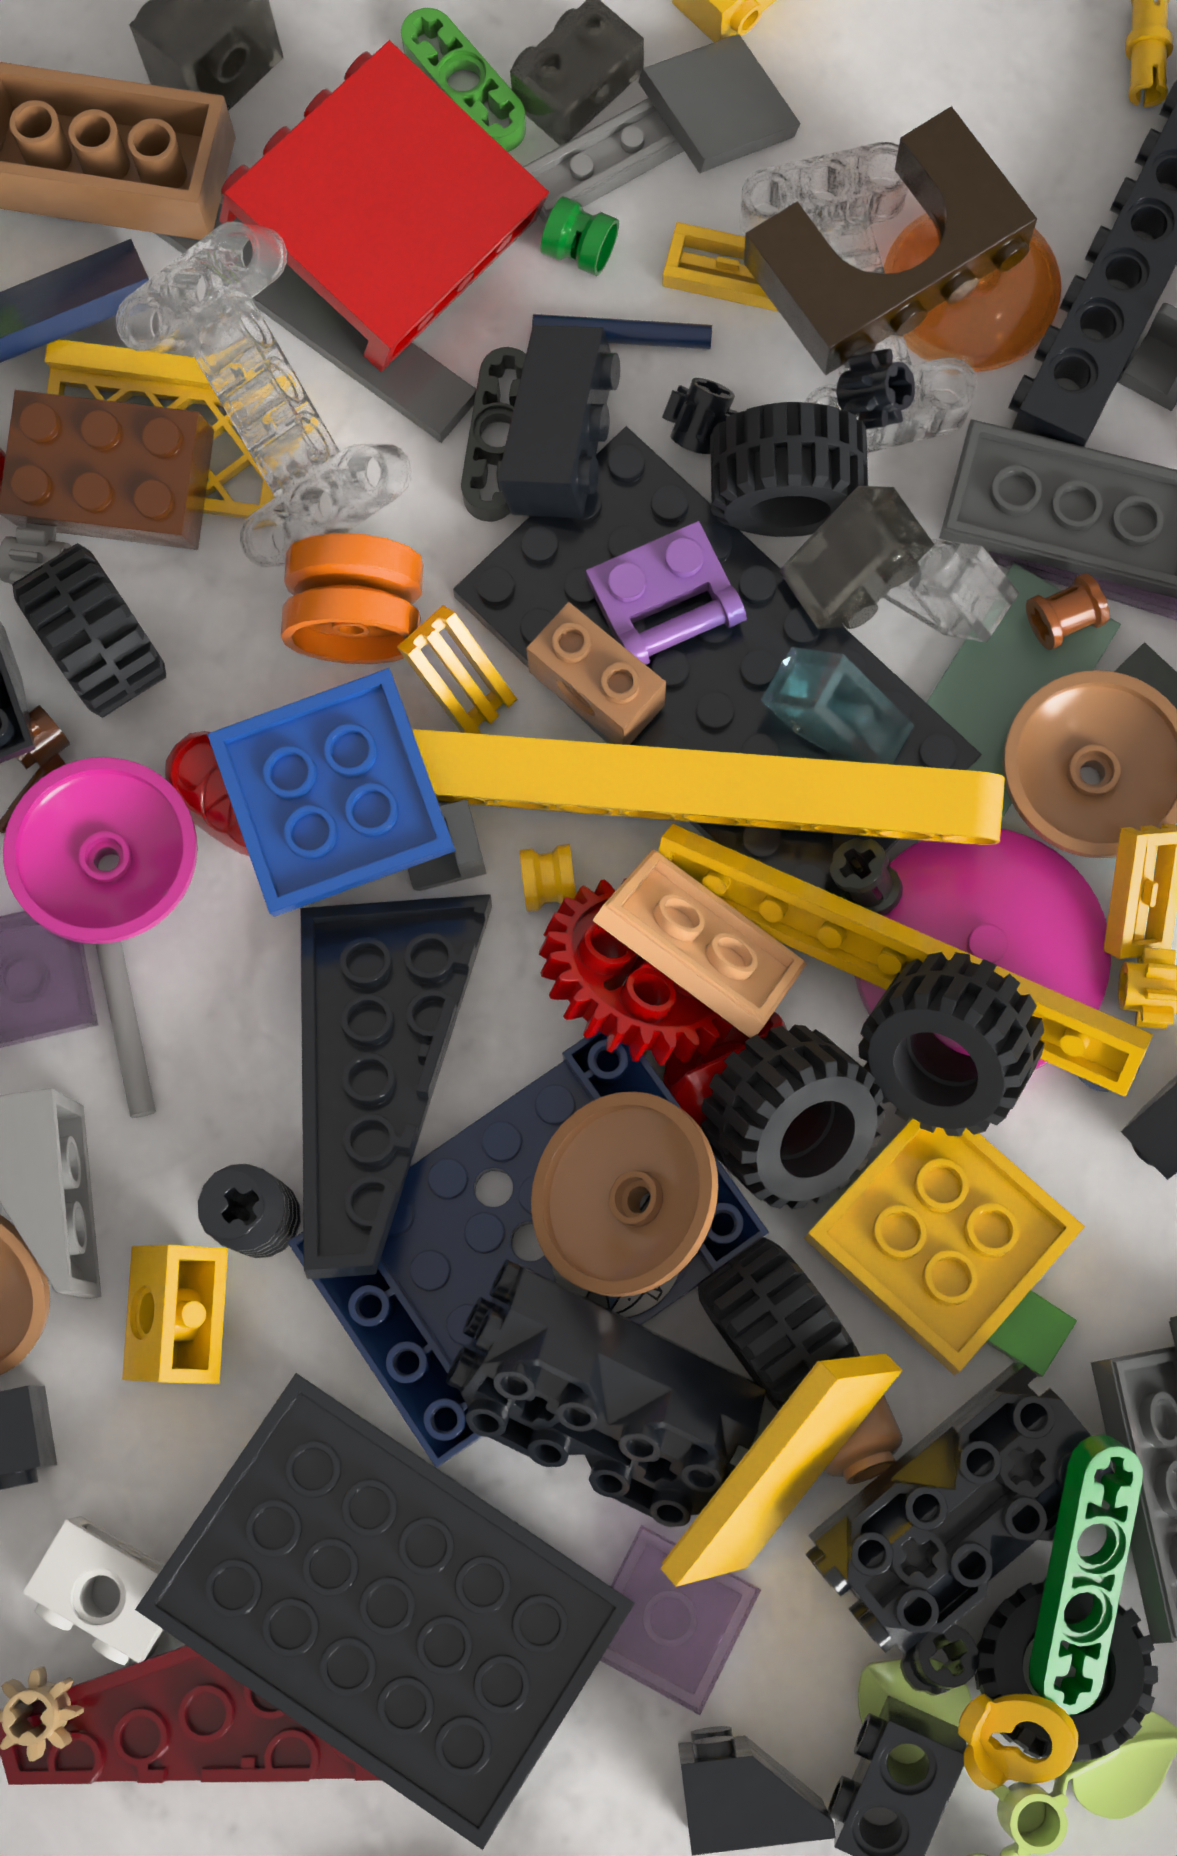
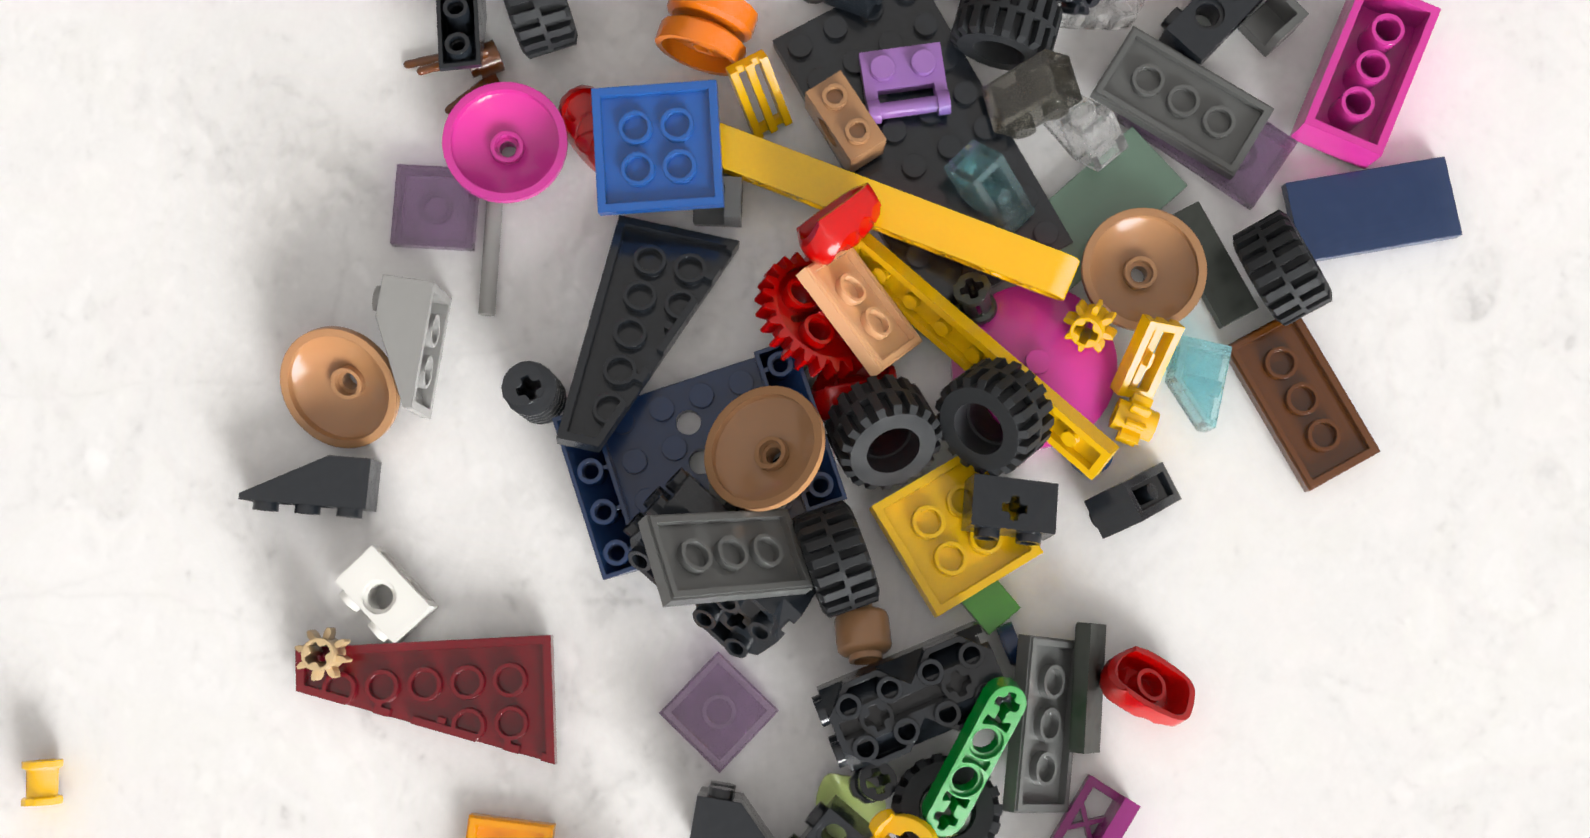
camera: 10 degrees right, 5 degrees up
(175, 1314) = (472, 441): yellow brick -> none
(387, 1609) = (549, 654): black plate -> none
(547, 876) = (777, 240): yellow wheel -> none
(614, 1378) = (724, 556): none -> dark grey tile
(635, 826) = (839, 224): none -> piece
(780, 1467) = (810, 640): yellow tile -> none
(1045, 1153) = (1031, 500): none -> black brick
(1049, 886) = (1087, 337): none -> yellow gear
(1067, 611) = (1155, 167): dark orange bush -> none
(1078, 1378) = (1009, 641): none -> dark blue tile

